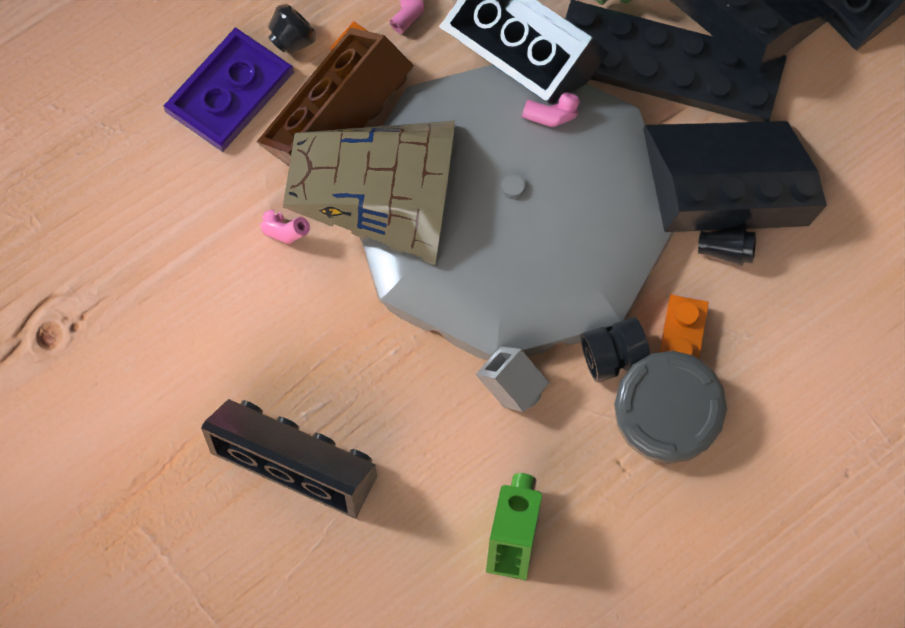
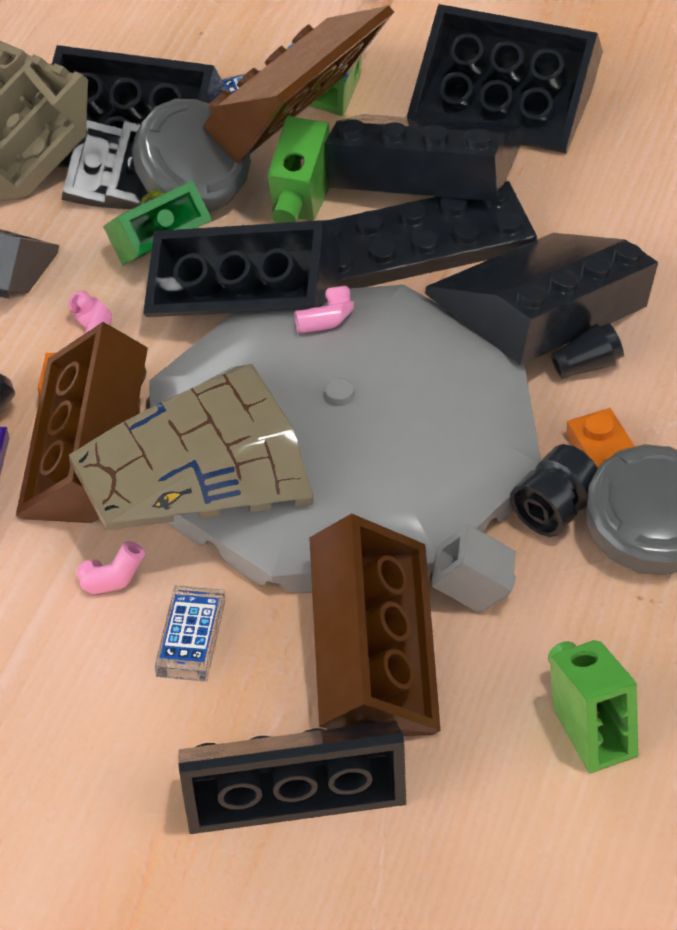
camera: 30 degrees left, 20 degrees down
(305, 306) = (190, 633): none -> tile
(411, 386) = (373, 628): none -> reddish brown slope

